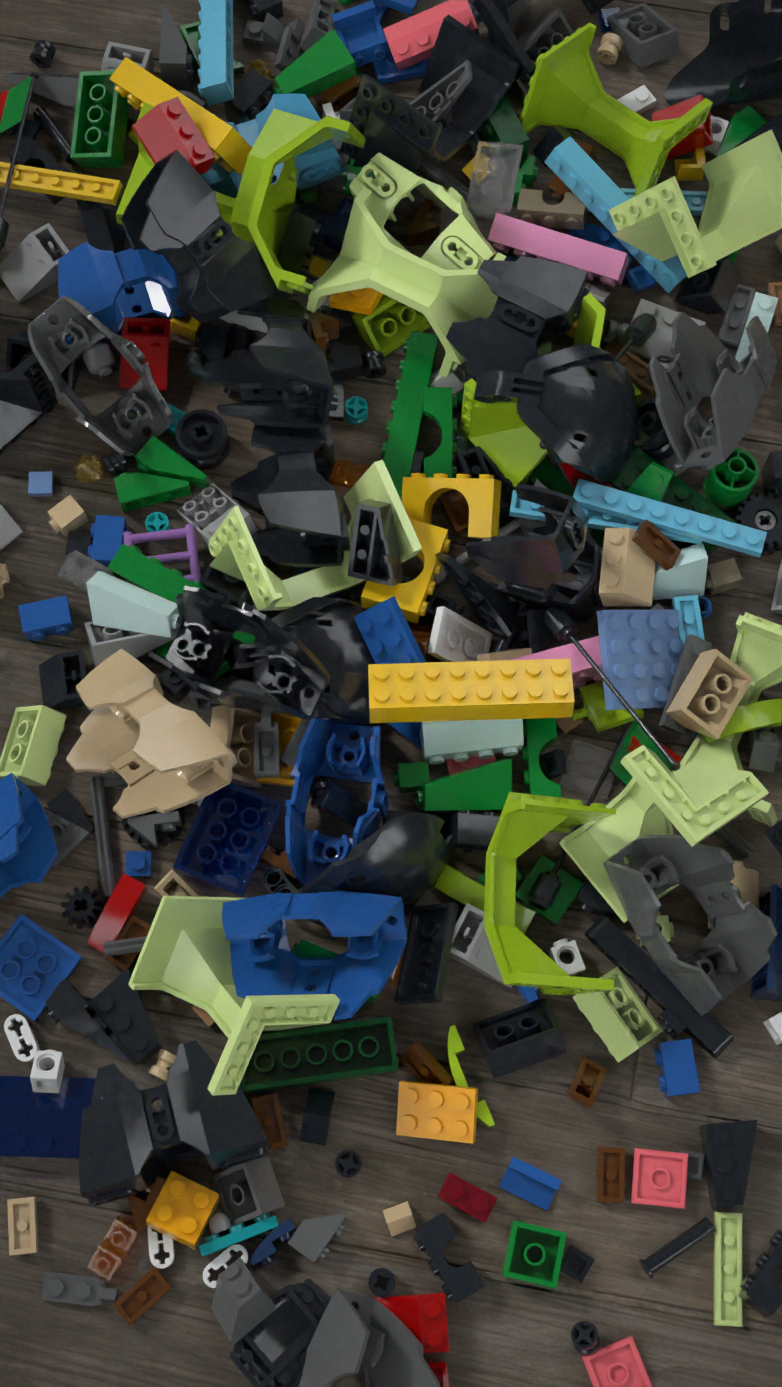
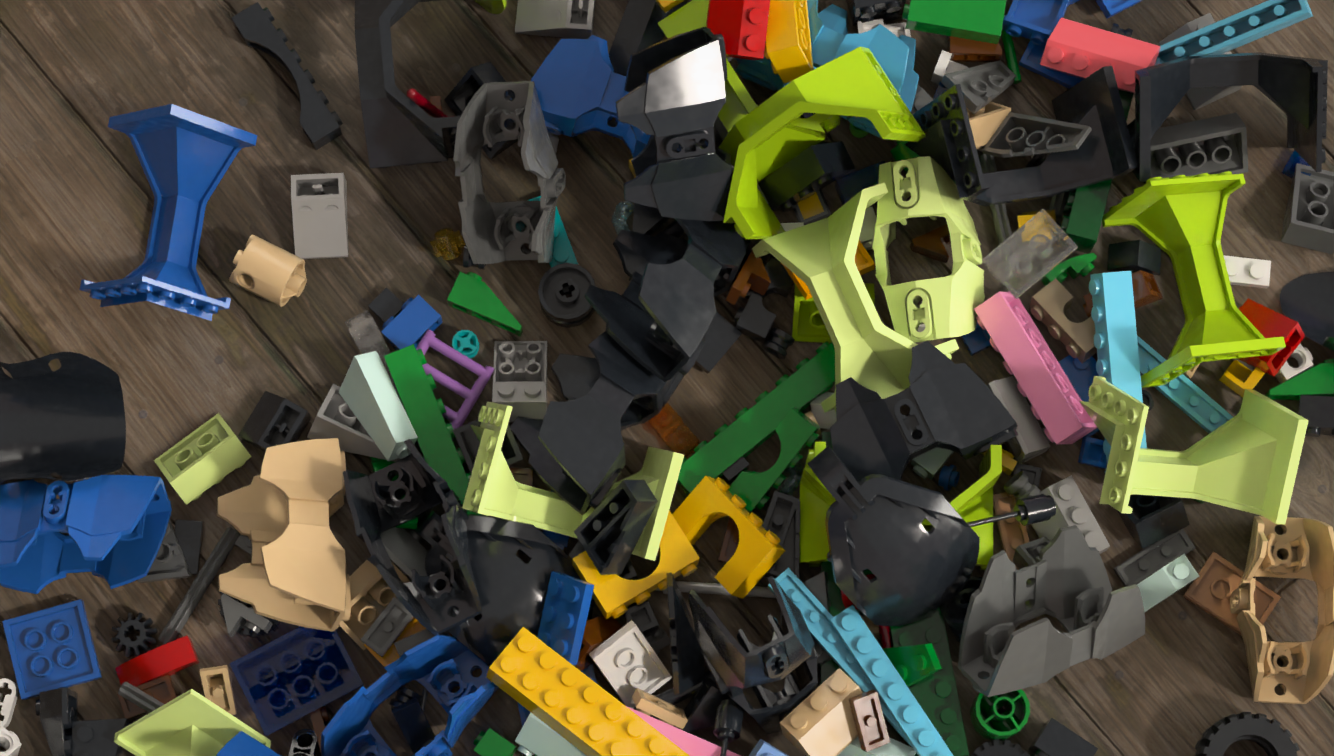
camera: 40 degrees right, 5 degrees up
(41, 484) = (398, 223): medium blue tile -> none
(46, 618) = (304, 354): blue brick -> none
(67, 516) = (394, 273): tan brick -> none
(139, 864) = (209, 635): blue plate -> none
(154, 340) = (590, 170): red slope -> none
(162, 461) = (517, 292): green slope -> none
(356, 404) = (726, 369): teal wheel -> none
(609, 49) = (1269, 198): tan wheel -> none

